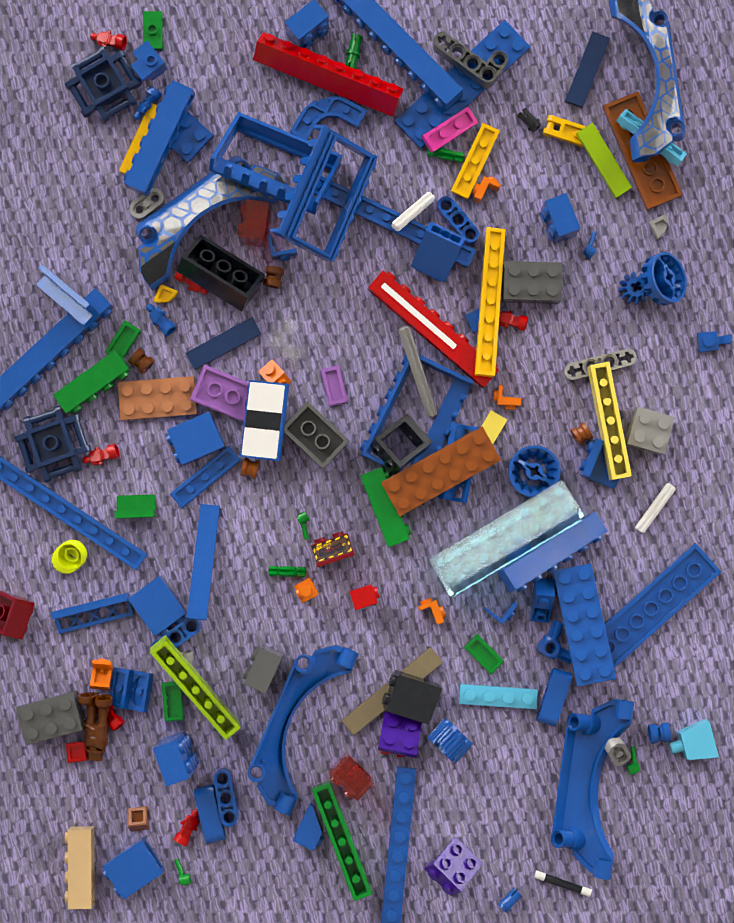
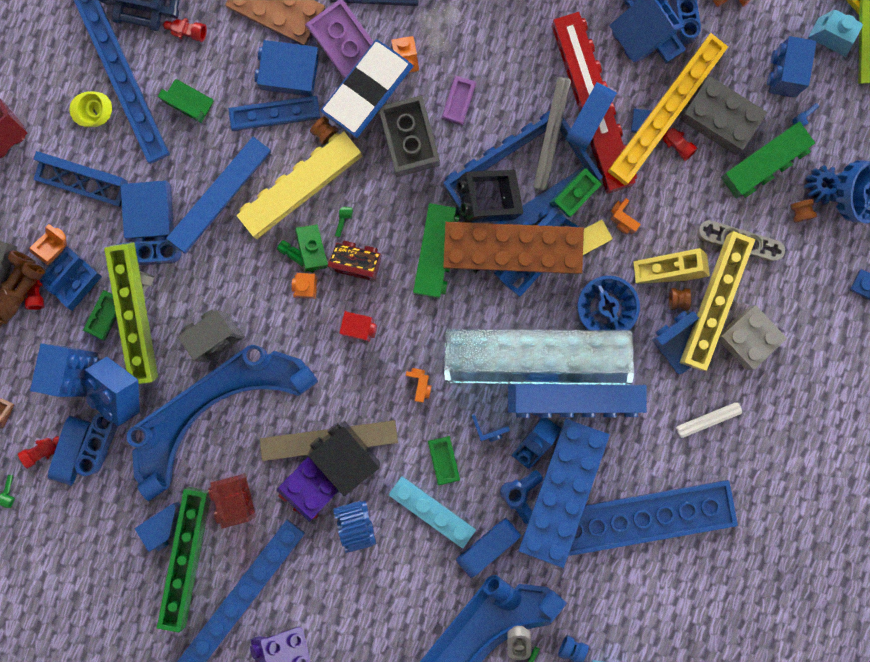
camera: 40 degrees right, 0 degrees up
(216, 752) = (112, 391): none -> blue brick
(257, 519) = (299, 185): none -> light yellow brick
(294, 559) = (311, 248): none -> green plate
(438, 343) = (591, 116): none -> blue beam
(460, 403) = (576, 192): none -> green panel
(562, 414) = (672, 267): none -> light yellow slope
(576, 172) = (836, 31): none -> medium azure torso
(583, 295) = (767, 160): none -> green brick
(631, 316) = (803, 210): none -> dark orange wheel

